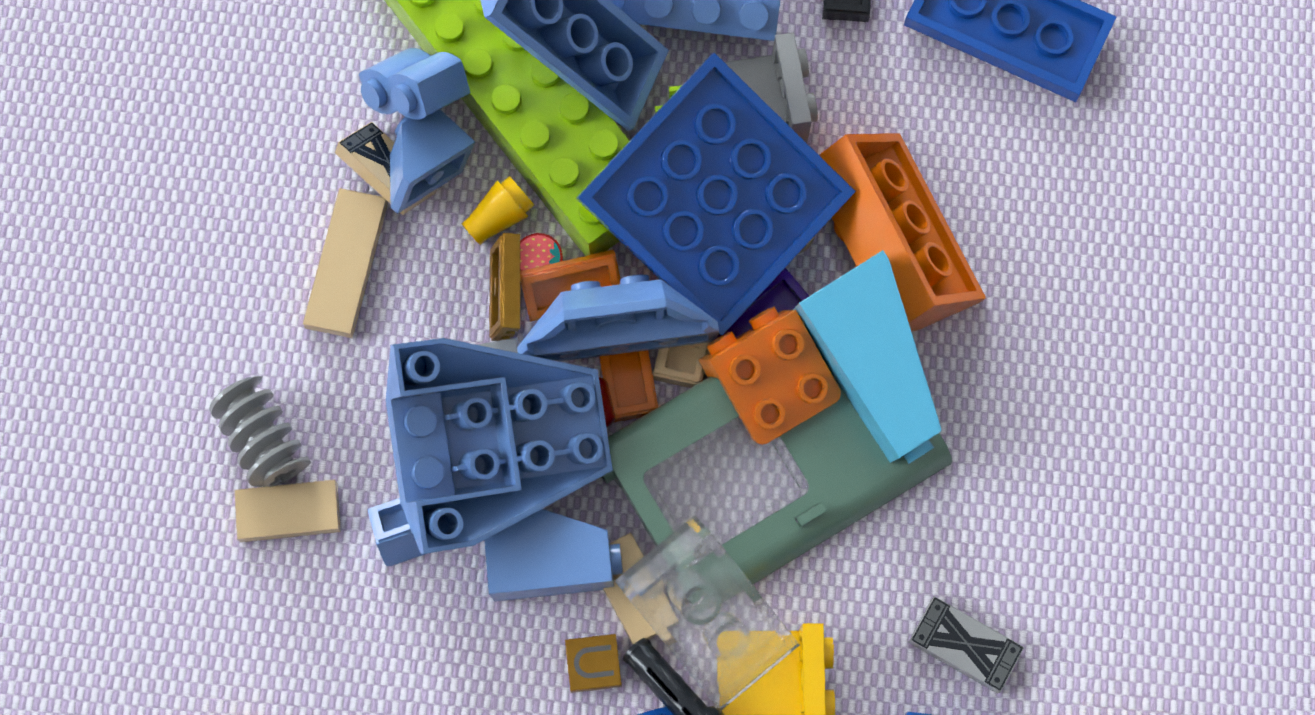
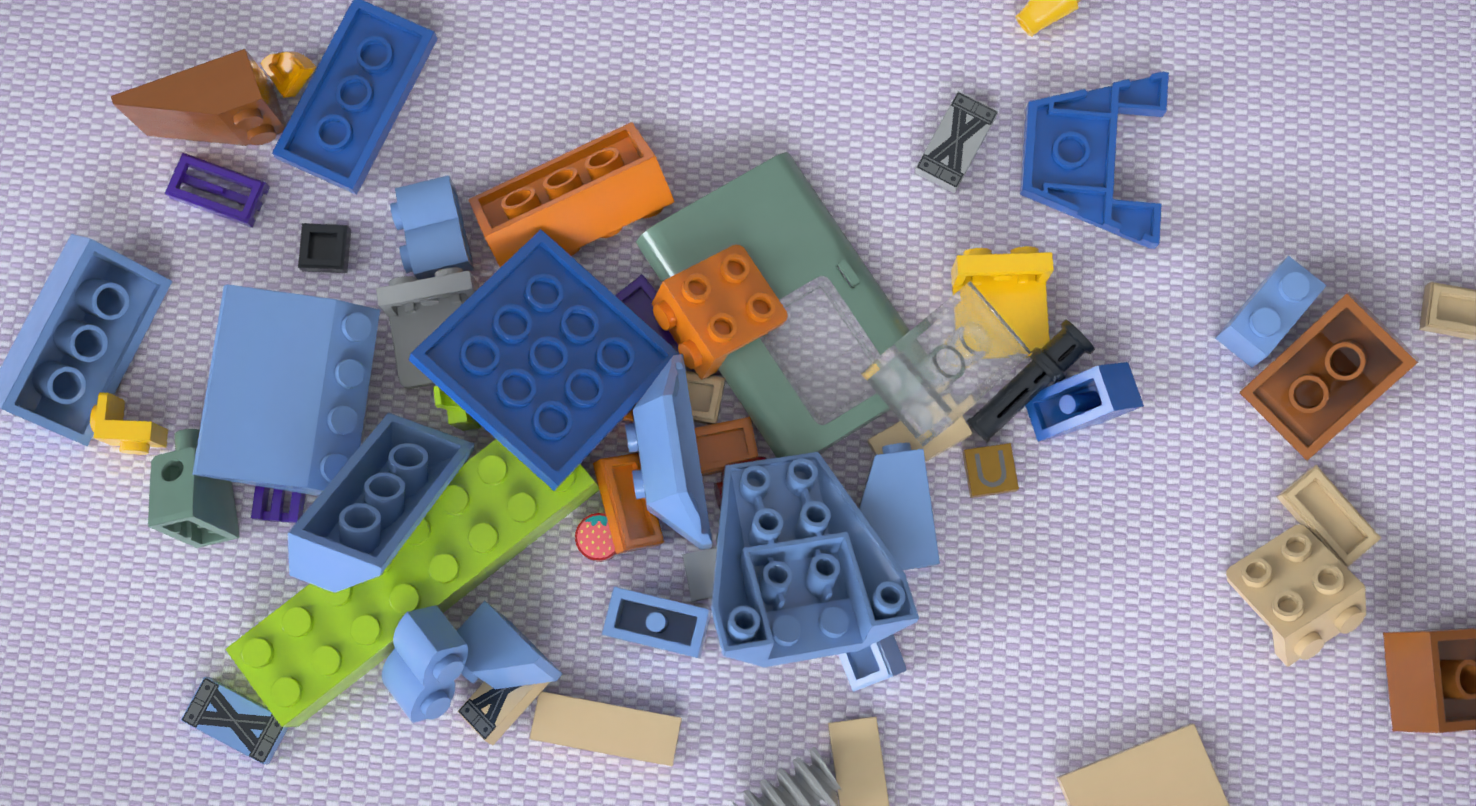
camera: 85 degrees left, 5 degrees up
(445, 297) = (656, 622): none -> medium blue brick
(498, 210) = (552, 578): yellow cone -> none
(504, 287) = (632, 566): pearl gold tile -> none
(864, 95) = (432, 227): none -> medium blue brick
(873, 356) = (703, 211): medium azure slope -> none

